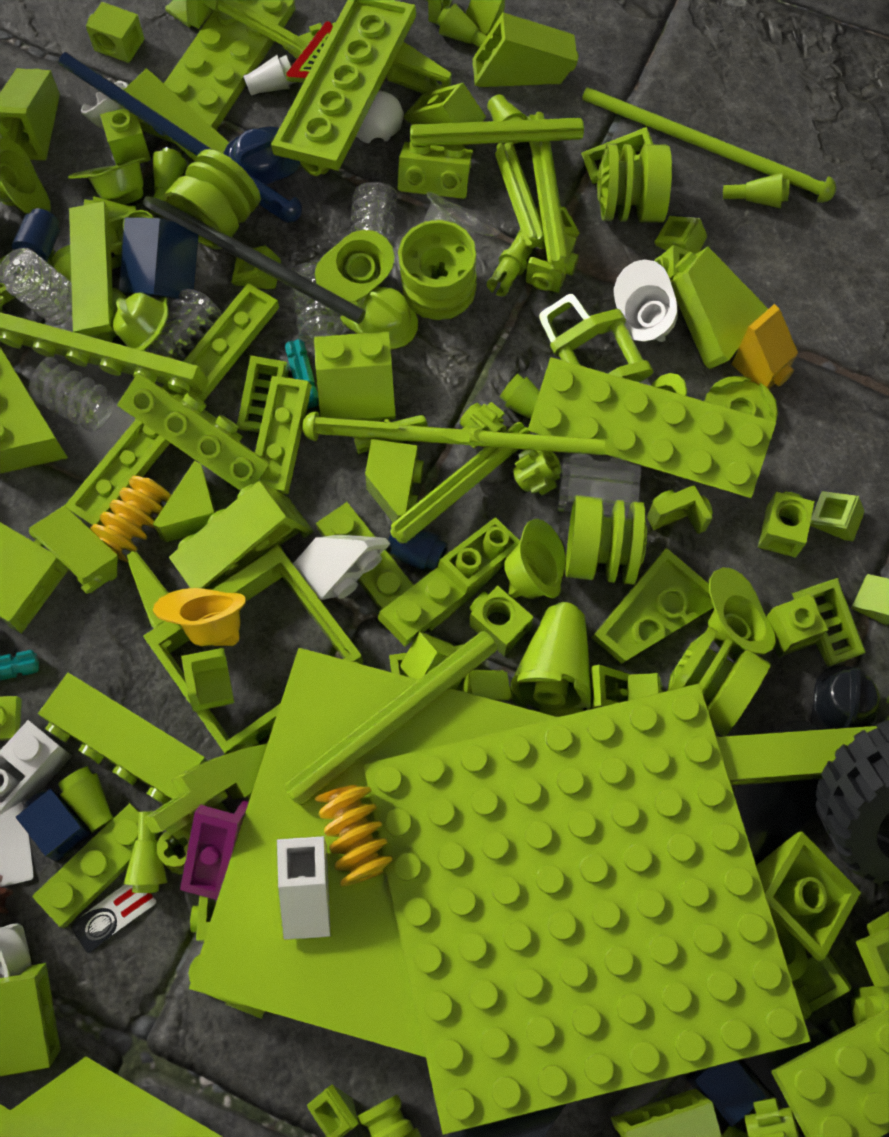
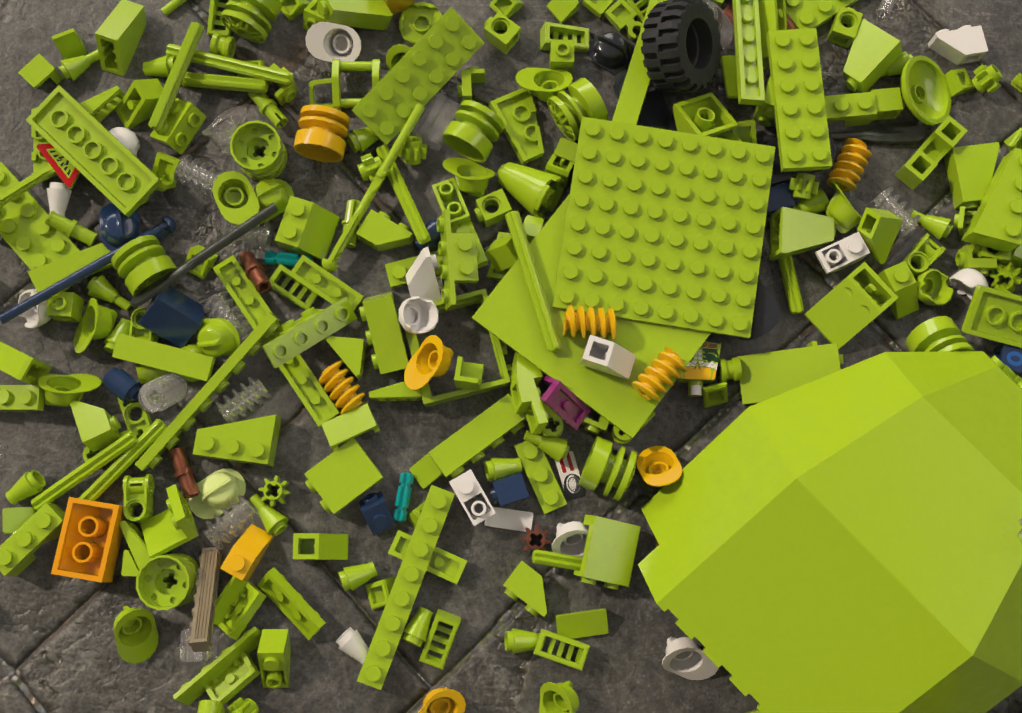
camera: 70 degrees left, 10 degrees up
(43, 683) = (426, 471): none -> lime slope
(130, 969) = (608, 468): none -> lime wheel
(159, 1058) = (659, 466): none -> yellow piece
(235, 102) = (71, 228): none -> lime pin
(262, 335) = (255, 271): none -> copper pin
(272, 568) = (418, 315): none -> white hair
(306, 992) = (659, 375): none -> yellow piece
(362, 171) = (164, 169): none -> lime bracket
(368, 1068) = (701, 368): none -> torso
(385, 595) = (458, 259): none -> lime bracket
(507, 336) = (322, 133): none -> yellow wheel
(572, 174) = (222, 46): none -> lime wheel

